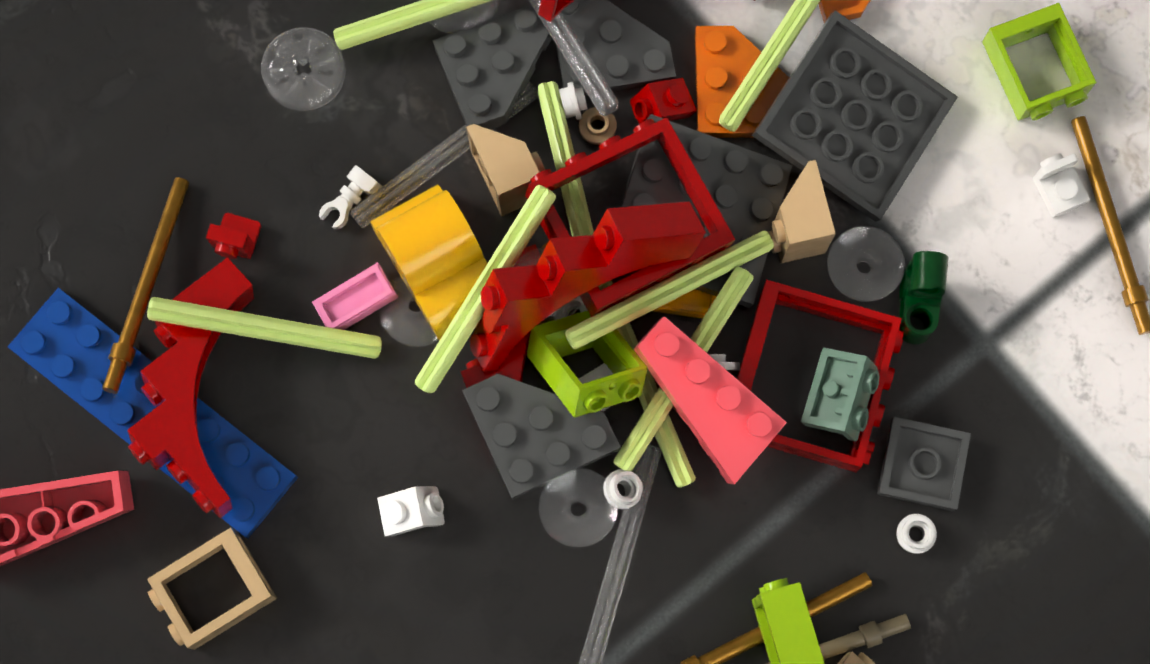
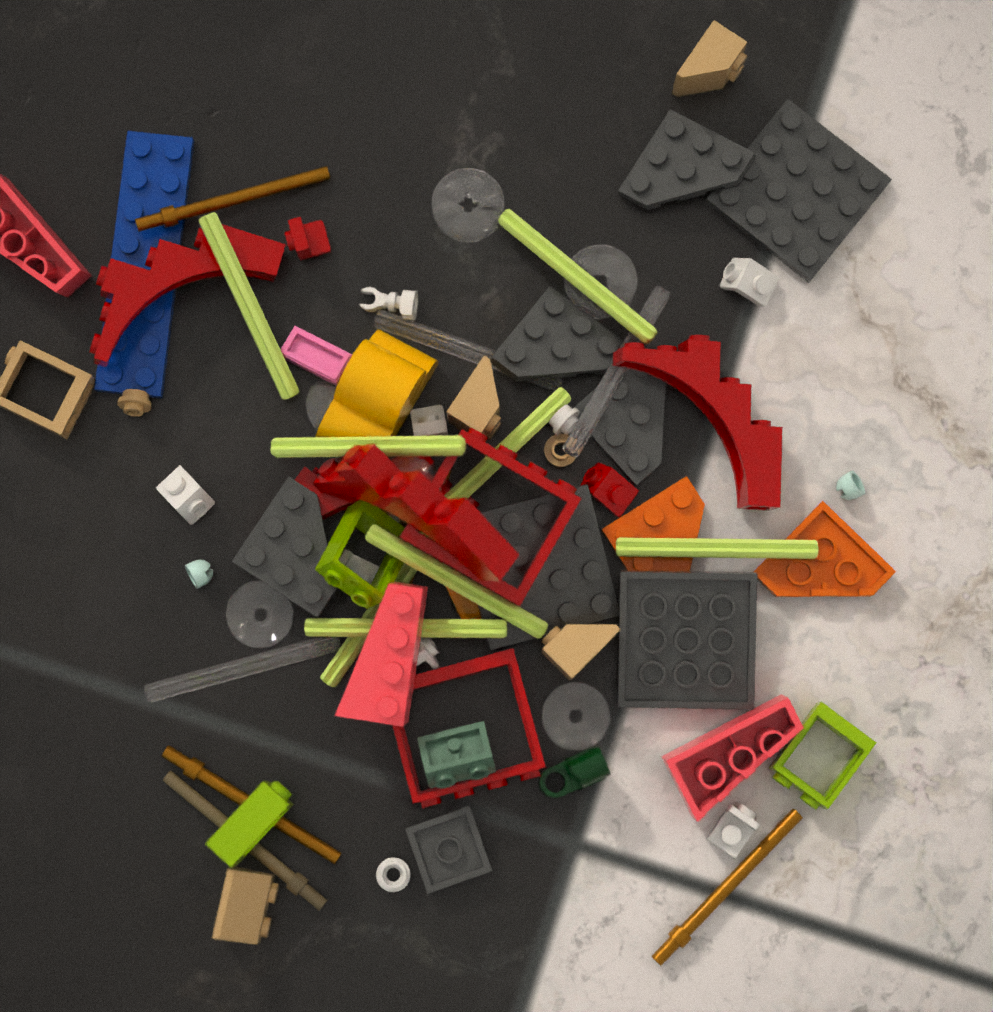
camera: 60 degrees right, 5 degrees up
(285, 504) = (134, 402): none -> tan plate
(492, 227) = (429, 421): none -> white bracket
(498, 544) = (199, 572): none -> light aqua hinge
(632, 486) = (295, 646): white plate -> none
(988, 143) = (730, 753): none -> coral wedge

